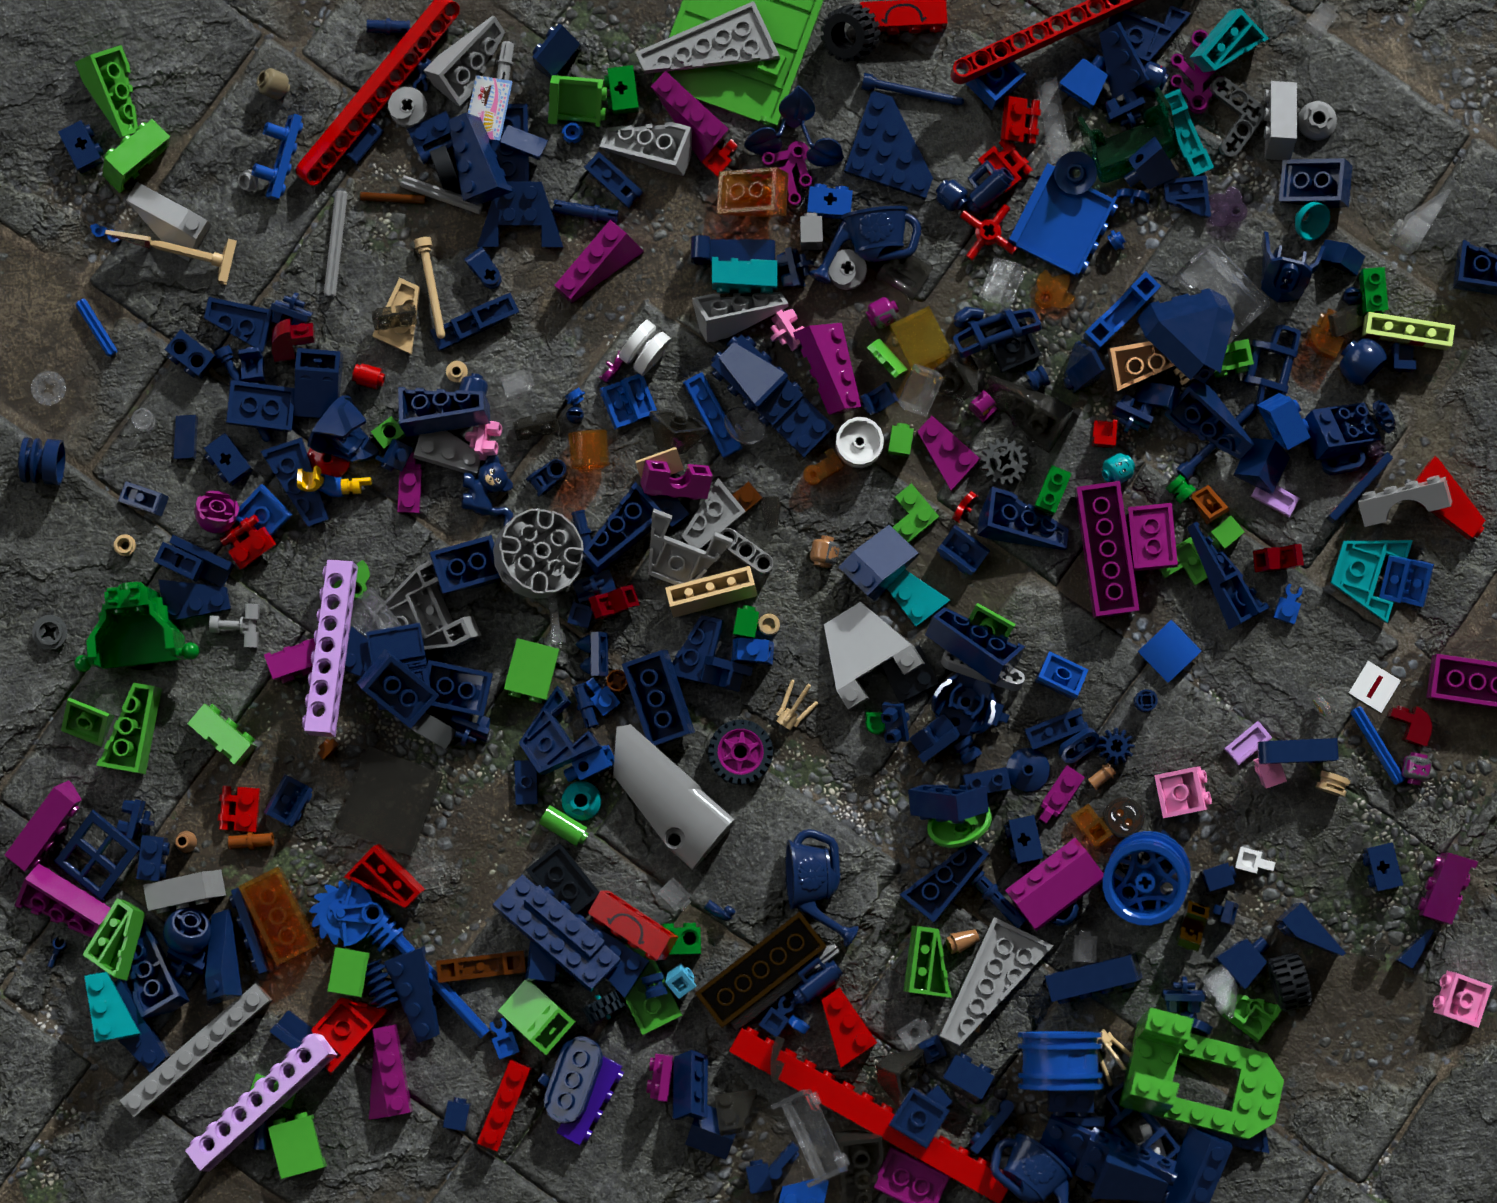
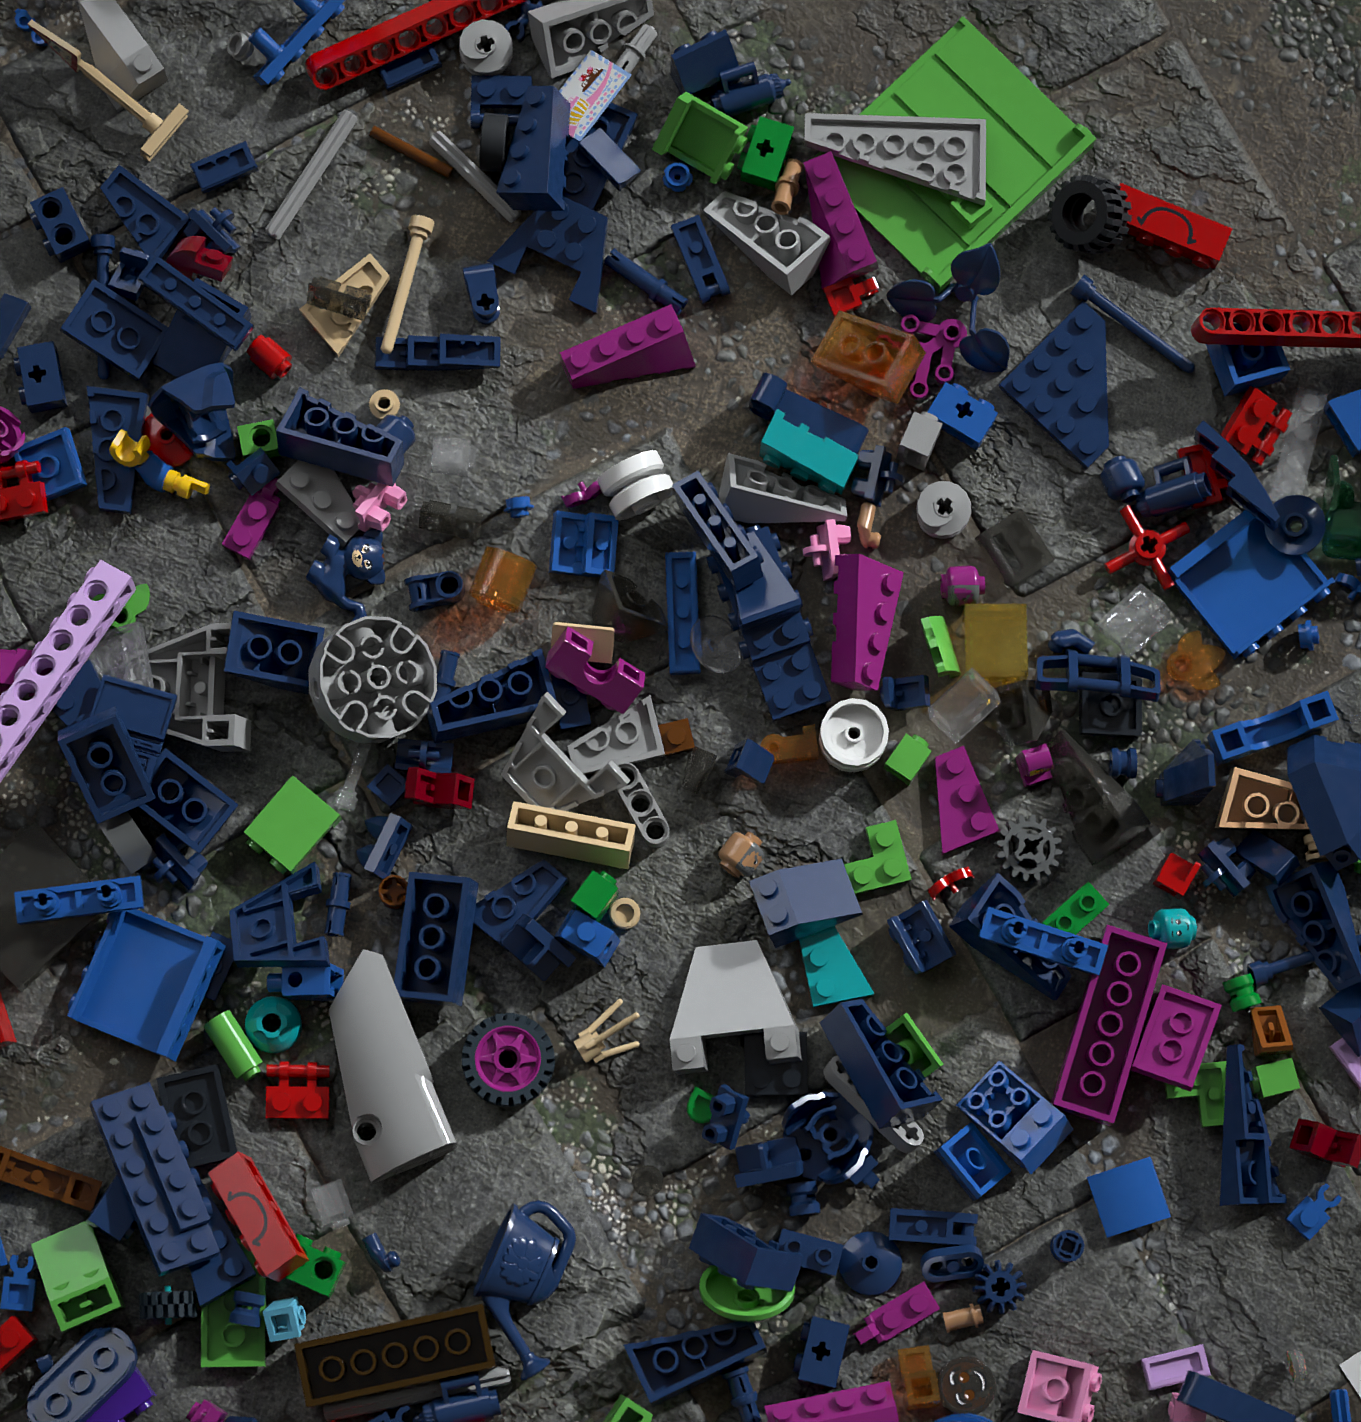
camera: 20 degrees right, 5 degrees down
(277, 265) = (224, 167): none -> dark blue plate
(305, 365) = (195, 303): none -> dark blue tile
(422, 782) = (79, 900): none -> blue plate
(488, 812) = (146, 981): none -> blue panel
(572, 418) = (505, 535): dark blue hinge -> none
(592, 56) = (748, 93): none -> dark blue piece
(604, 698) = (366, 906): blue plate -> none
(621, 841) = (297, 1102): none -> red plate
(646, 106) = (787, 186): none -> medium nougat pin
(712, 353) = (718, 530): none -> dark blue brick
(801, 302) = (864, 525): none -> medium nougat arm
(801, 490) = (750, 761): none -> dark blue slope
(873, 235) = (998, 482): dark blue piece -> none
(1031, 163) = (1243, 483): none -> dark blue slope
(1041, 517) = (1043, 941): none -> blue plate
(1075, 635) = (1015, 1117): none -> blue slope

